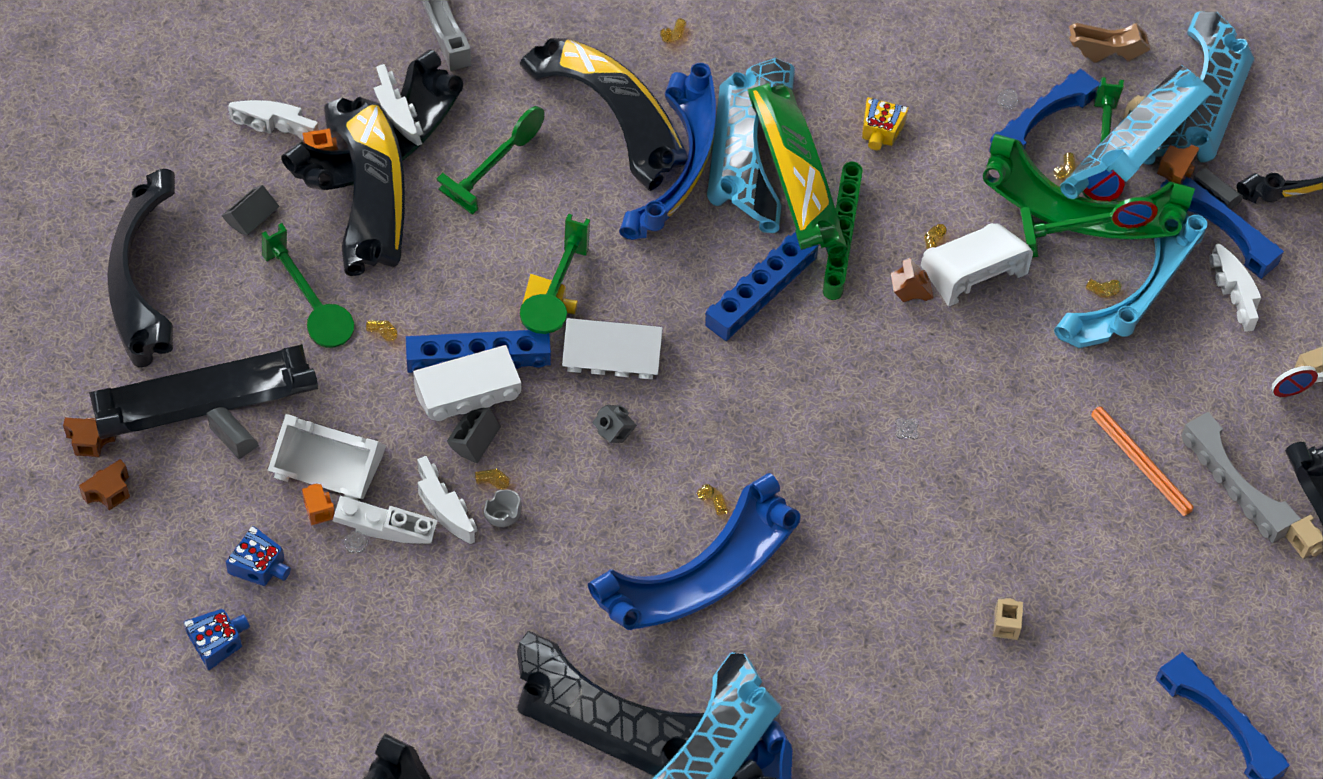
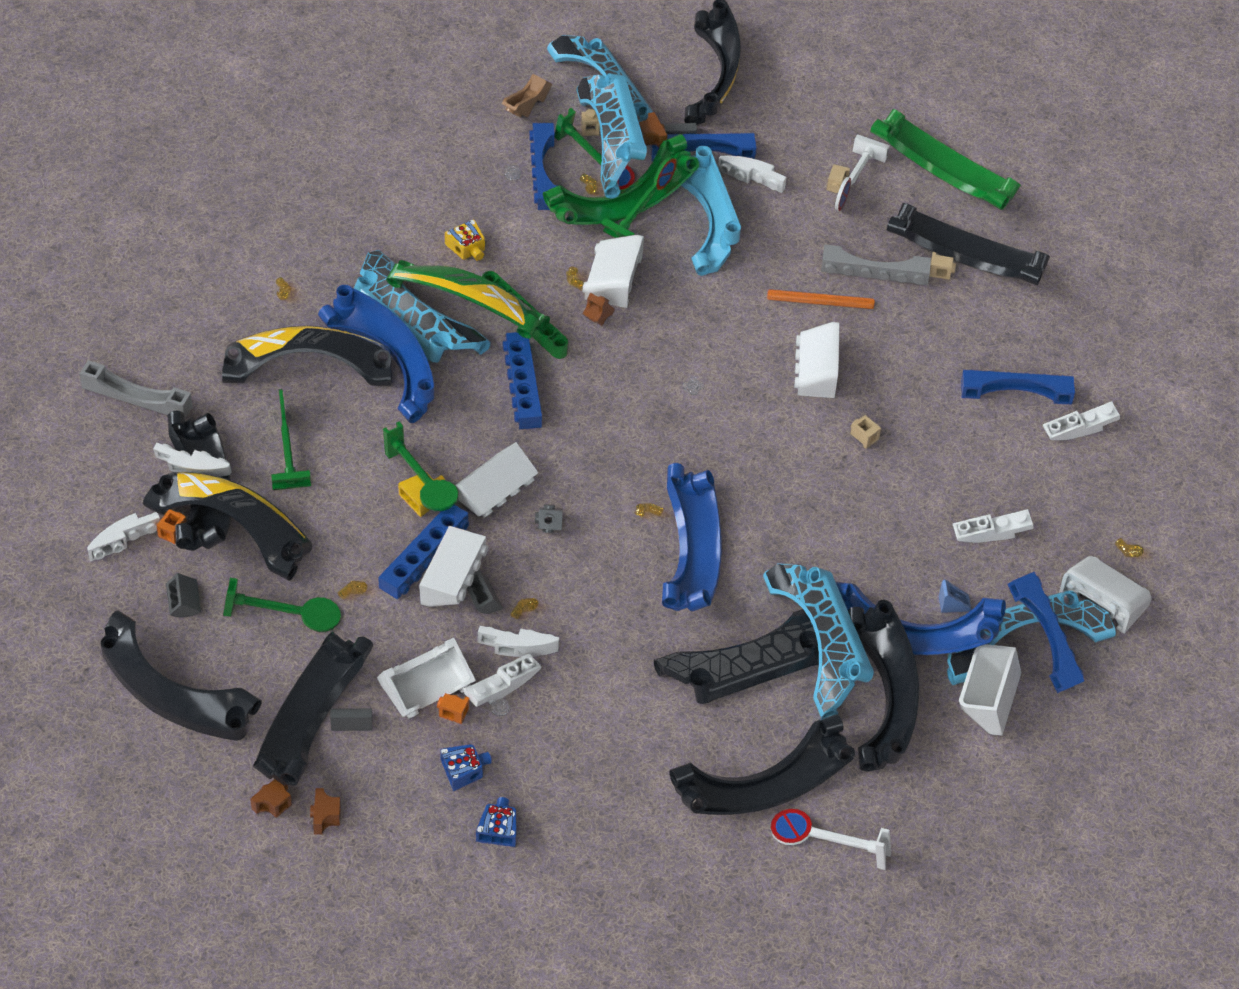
camera: 50 degrees left, 5 degrees down
(503, 508) = (554, 614): light grey hair -> none
(1052, 513) = (817, 361): none -> white windscreen
(1104, 289) = (692, 229): clear yellow arm -> none

